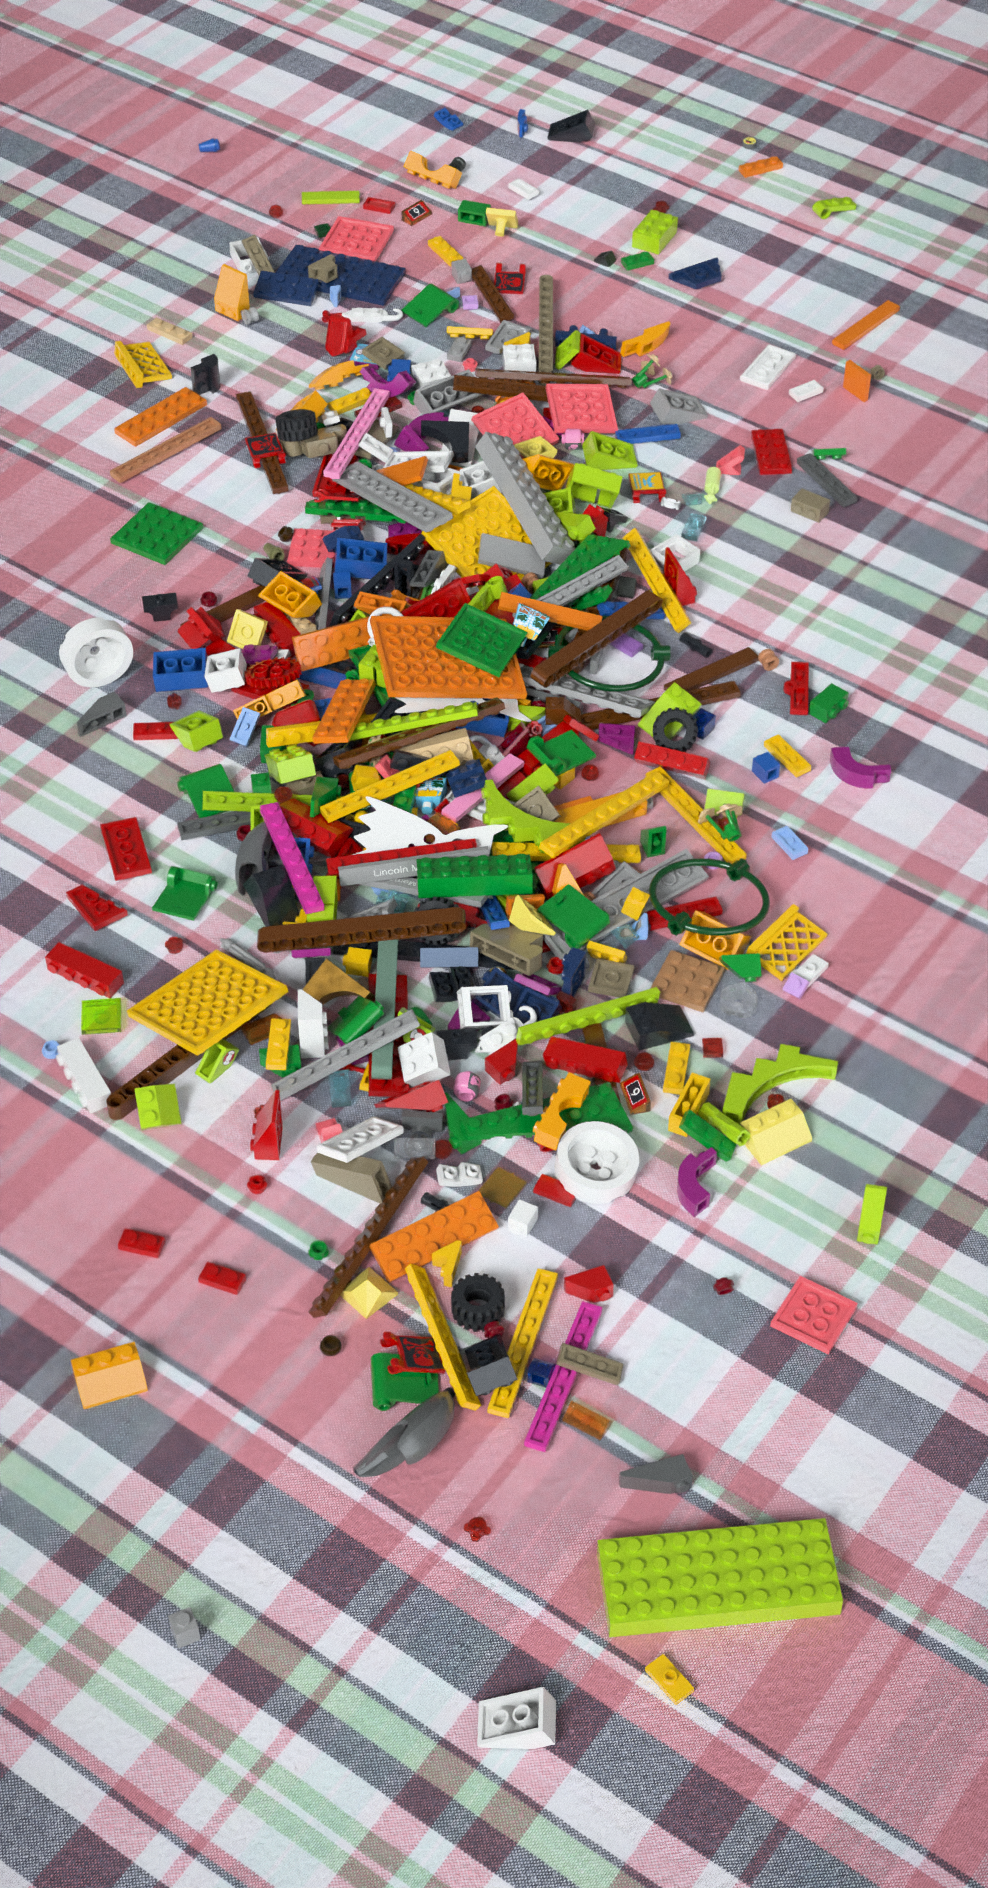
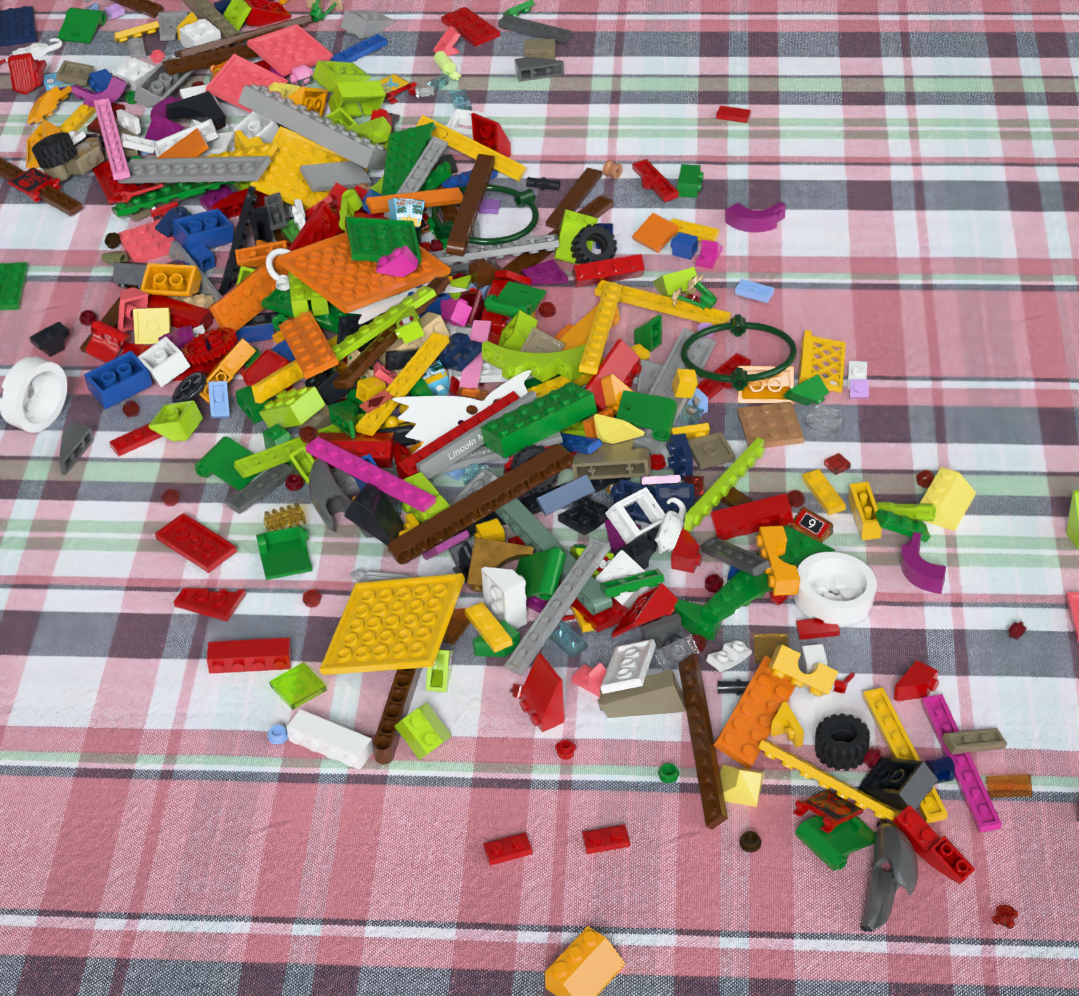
camera: 30 degrees left, 5 degrees down
(140, 798) = (170, 497): none -> clear red plate
(207, 863) = (284, 517): none -> clear yellow piece
(230, 705) = (189, 387): none -> black plate
(237, 599) = (130, 299): none -> coral slope
(353, 792) = (376, 401): none -> clear red sticker
(415, 1066) = (632, 582): none -> green plate
(433, 734) = (409, 326): none -> lime slope
(467, 1086) = (675, 583): bright pink head -> none
(469, 1433) = (934, 850): none -> red slope
(473, 669) = (398, 263): none -> dark pink slope
(482, 1208) = (785, 665): none -> yellow arch
(498, 738) = (455, 311): none -> dark pink slope
(527, 1254) = (840, 686): none -> red hand
(656, 1024) = (778, 468): black slope -> none
(750, 742) = (655, 232): none -> orange tile
(767, 1074) = (906, 450): lime arch -> none
(782, 786) = (709, 254): none -> dark pink slope
(791, 523) = (537, 68): none -> dark grey slope
(935, 652) = (733, 114): none -> red tile

